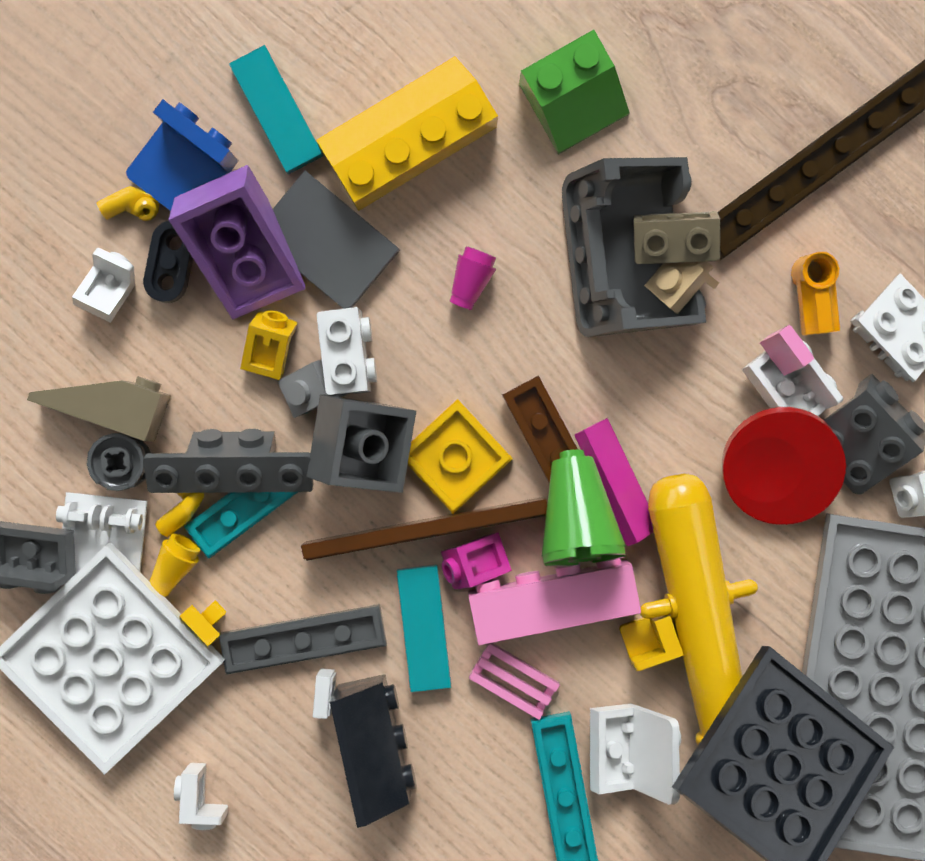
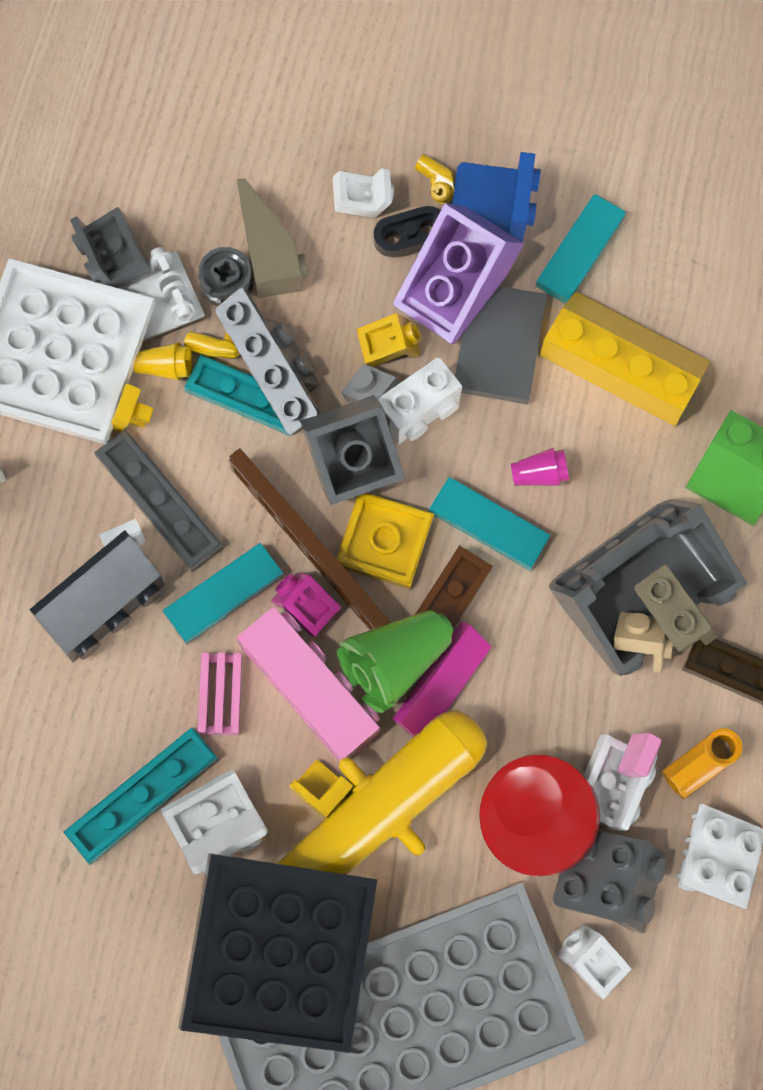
camera: 55 degrees right, 15 degrees down
(494, 353) = (489, 523): none -> teal tile

